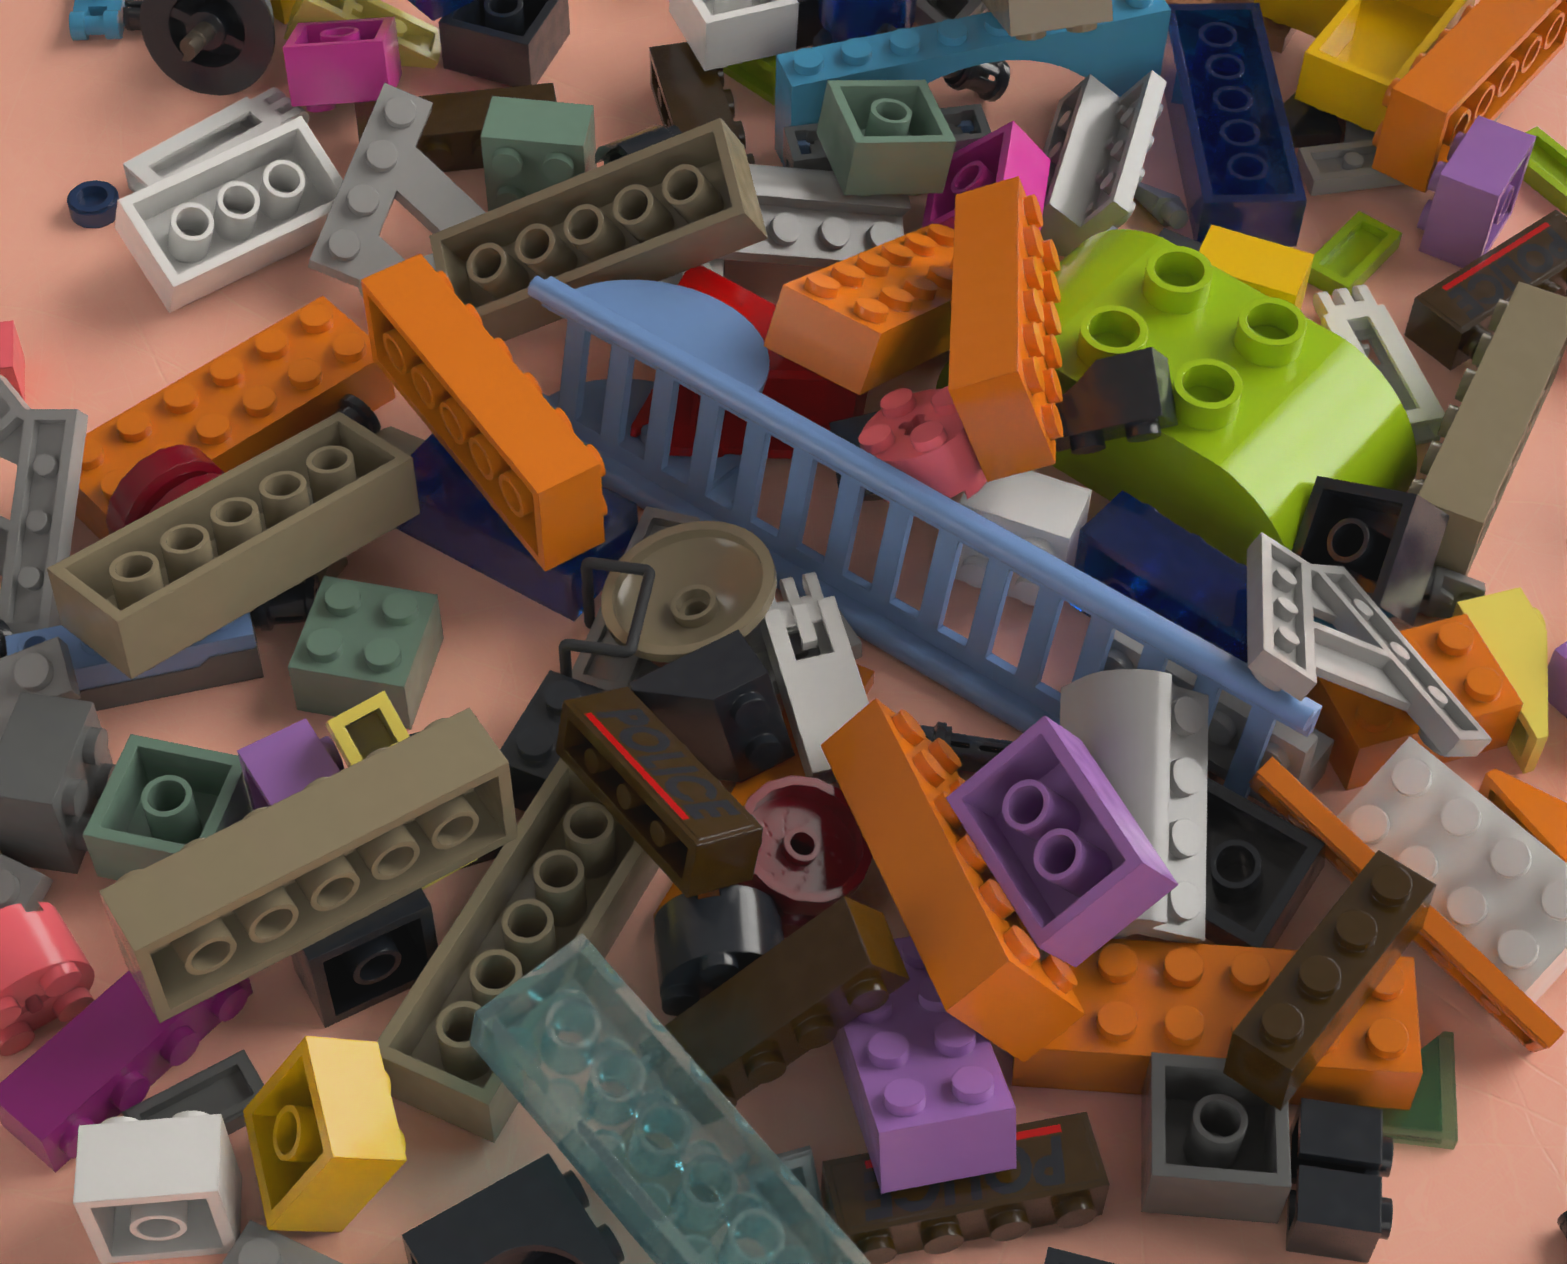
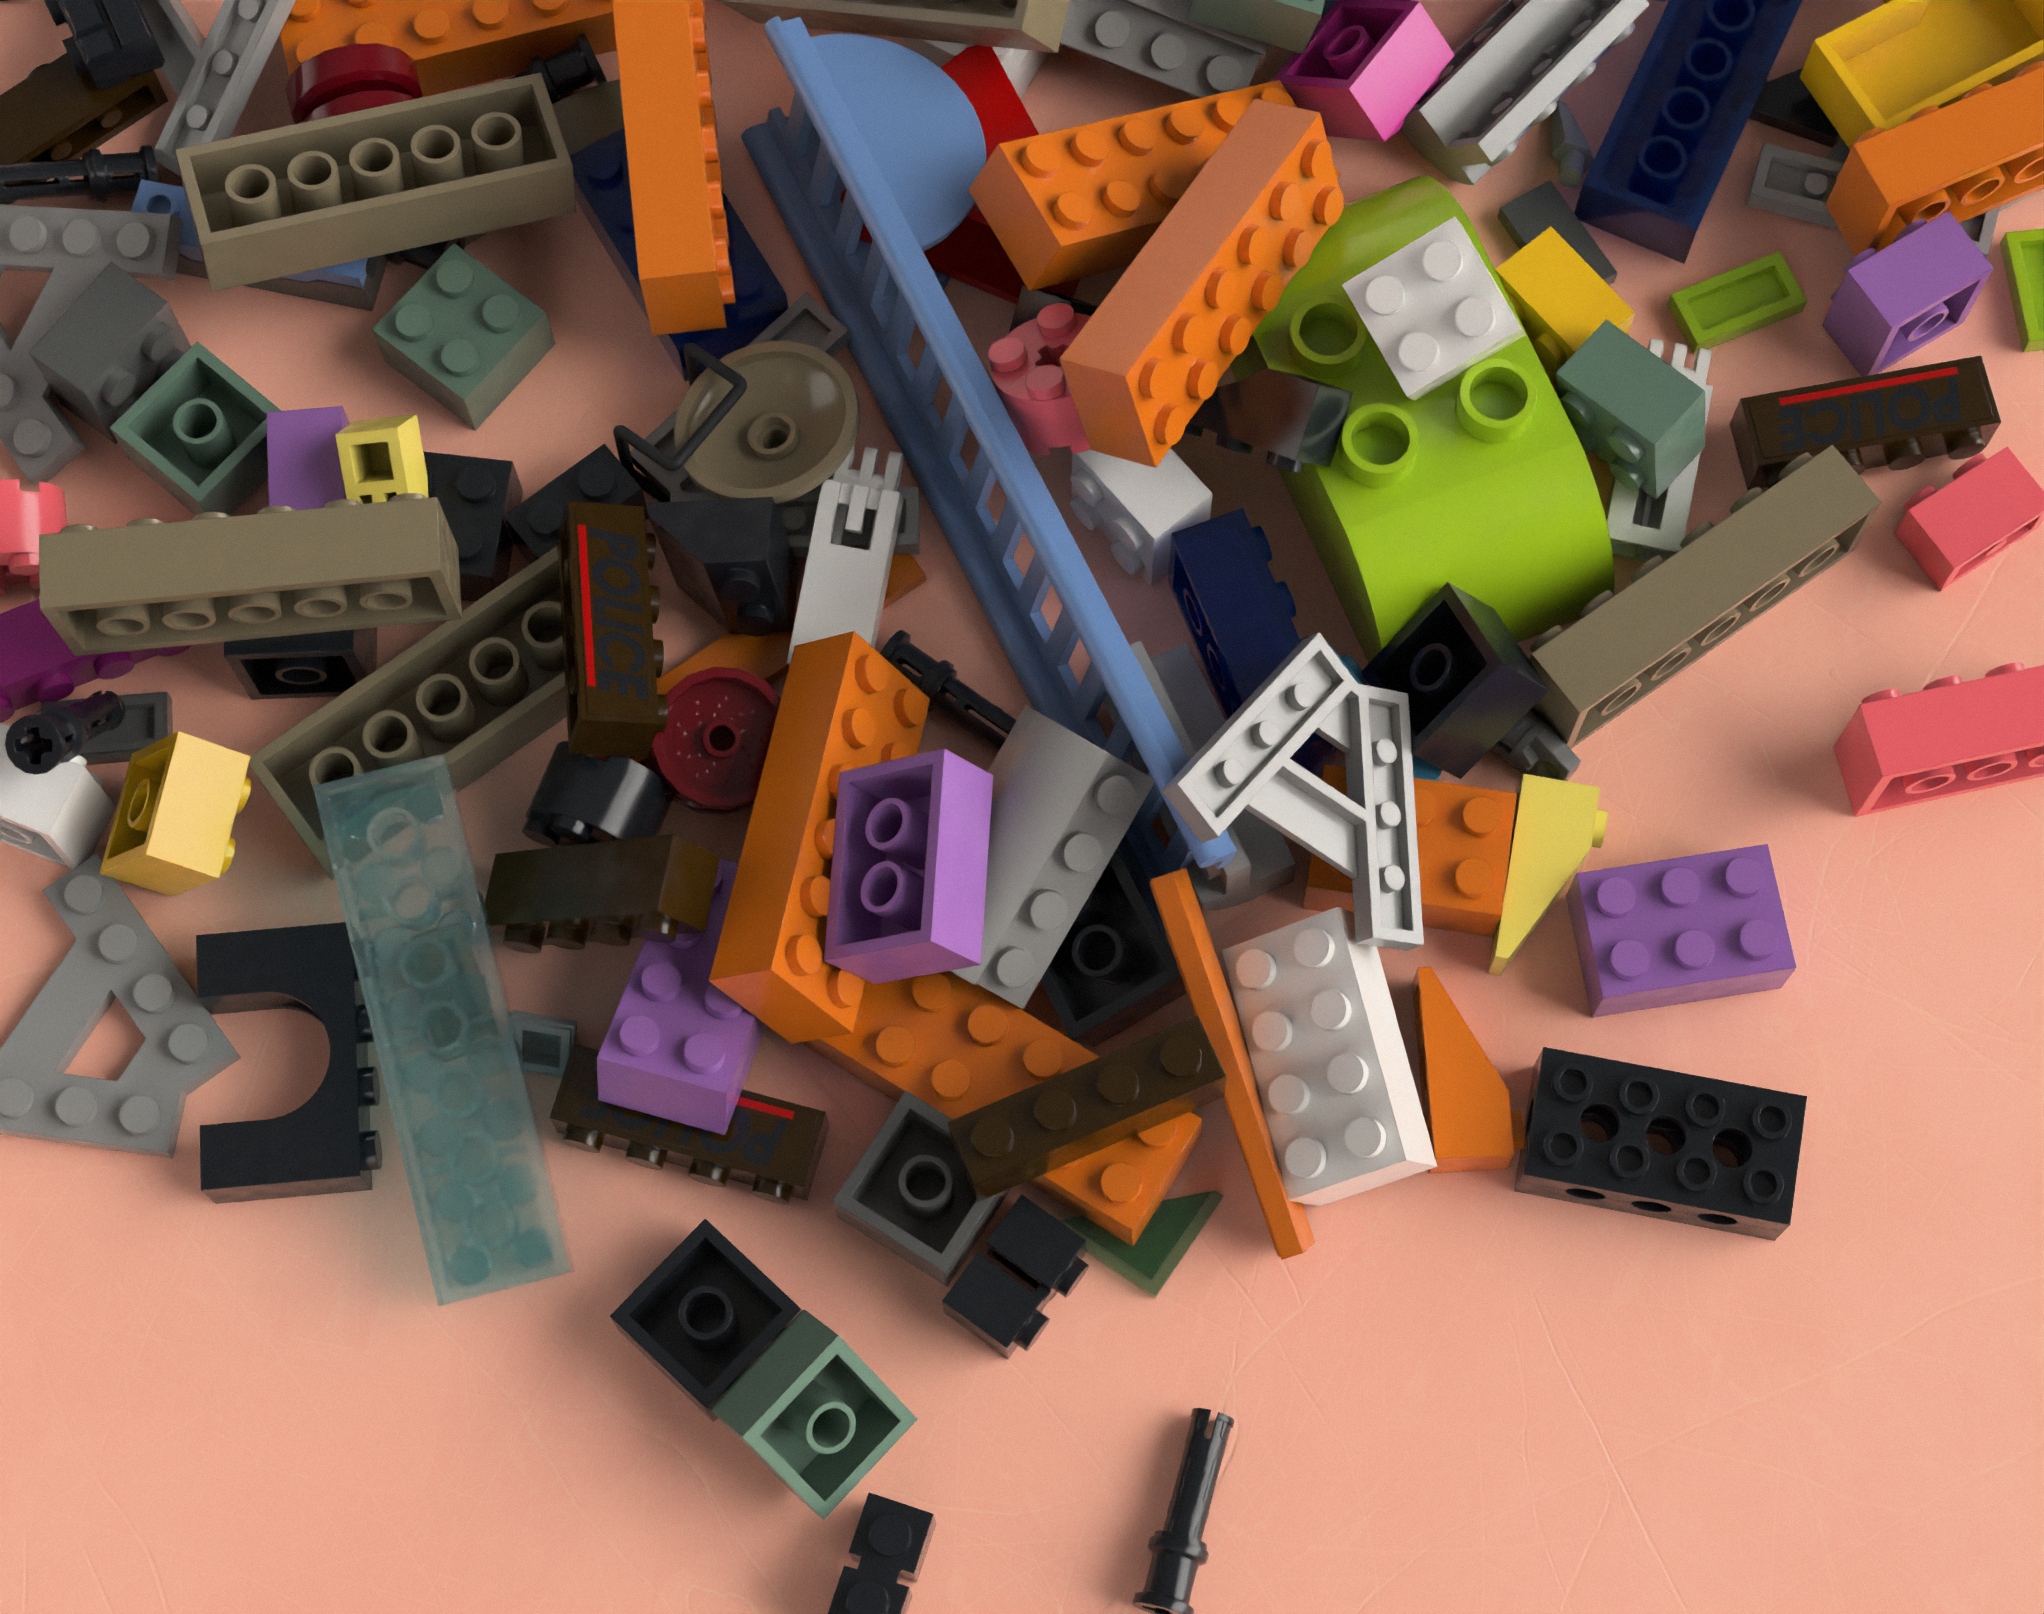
camera: 30 degrees right, 20 degrees up
(168, 1080) = (61, 731): none -> black pin
(1194, 273) = (1433, 309): none -> white brick
(1364, 304) = (1632, 409): none -> sand green brick

